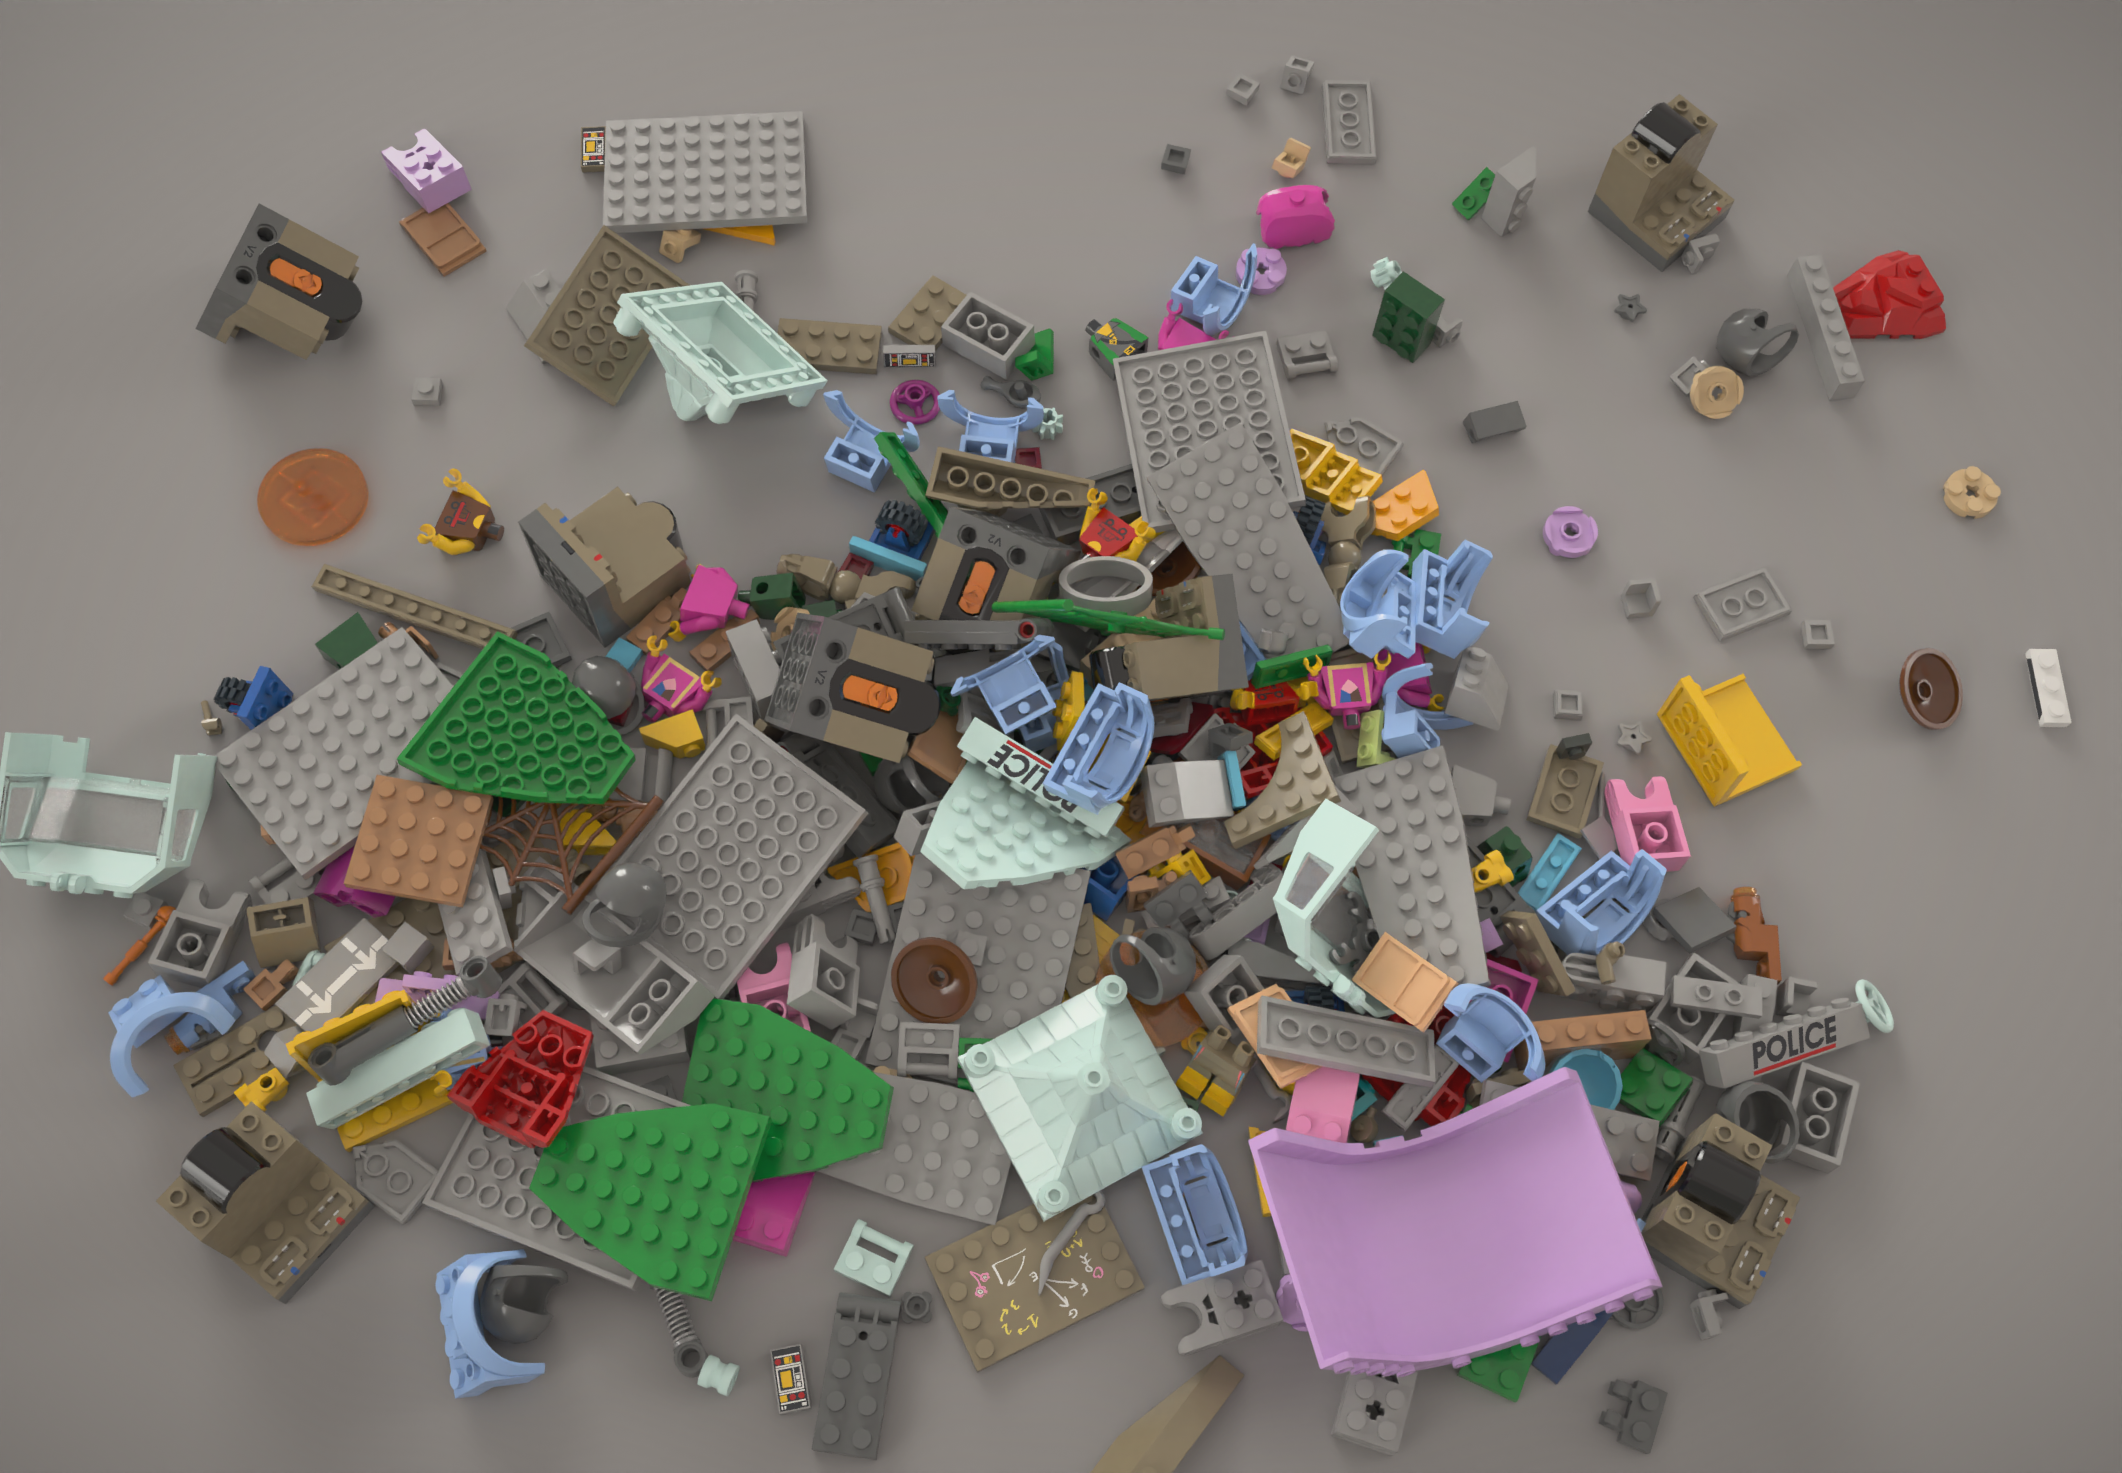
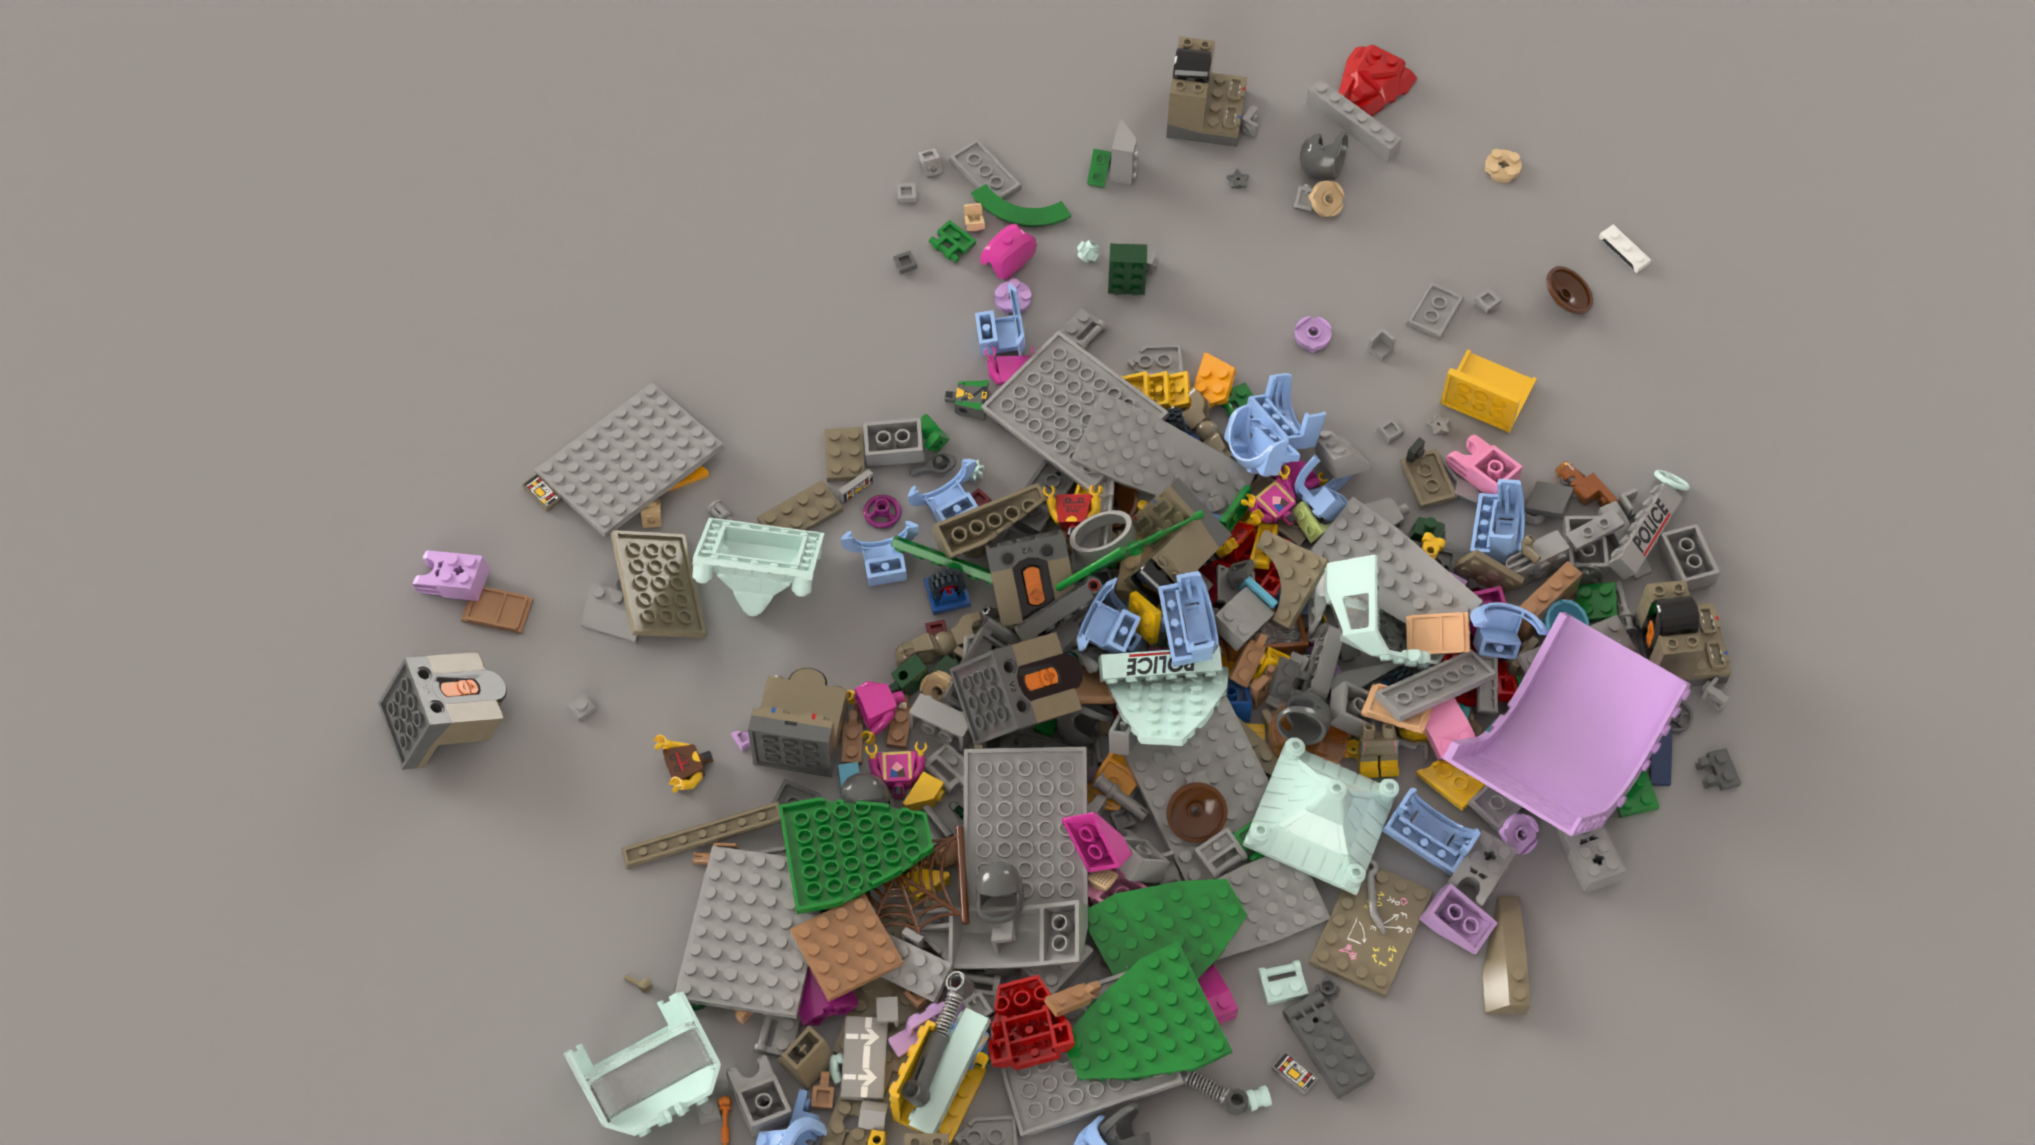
camera: 35 degrees left, 5 degrees down
(254, 699) = (660, 950): blue plate -> none
(312, 497) = (573, 816): clear orange plate -> none
(346, 642) = (685, 881): dark green torso -> none
(597, 1090) = (1072, 998): none -> medium nougat hinge
(764, 975) = (1102, 879): none -> tan slope
(778, 933) = (1096, 842): none -> dark pink slope
(887, 558) = (953, 611): medium azure tile -> none
(1141, 1348) = (1458, 919): none -> lavender slope
(1254, 168) = (956, 237): none -> green plate
(1345, 189) = (1019, 215): none -> green tile
(1494, 421) = (1221, 298): dark grey hinge -> none
(1549, 871) = (1454, 527): medium azure tile -> none
(1759, 1111) = (1661, 569): dark grey piece -> none

